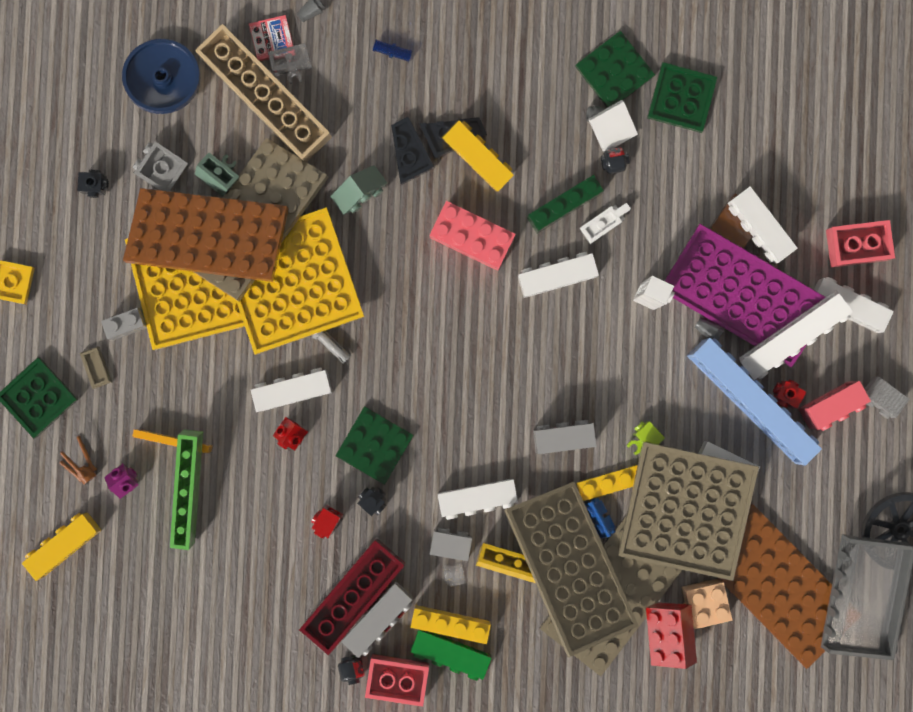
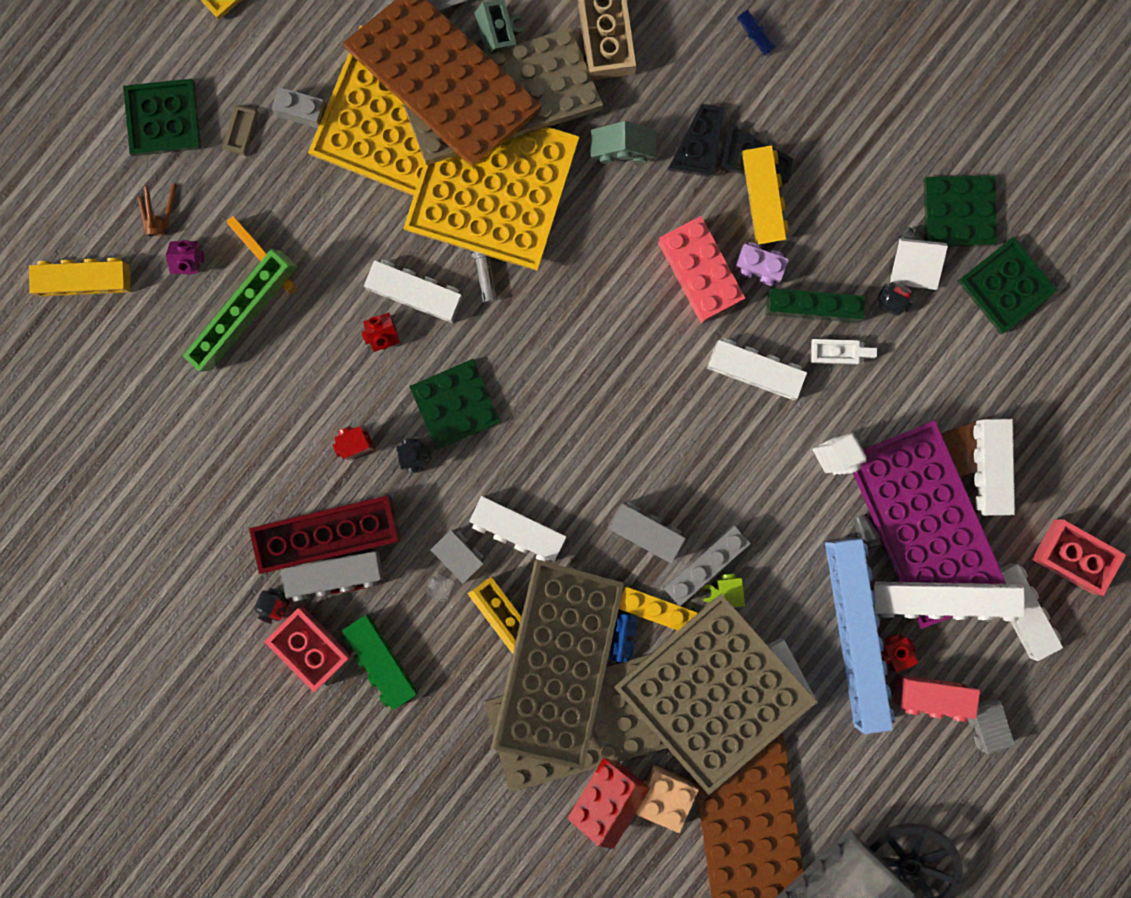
camera: 30 degrees right, 0 degrees up
(450, 624) = (400, 633): yellow brick -> none
(509, 203) = (760, 264): none -> lavender brick
(619, 430) = (706, 565): none -> light grey brick

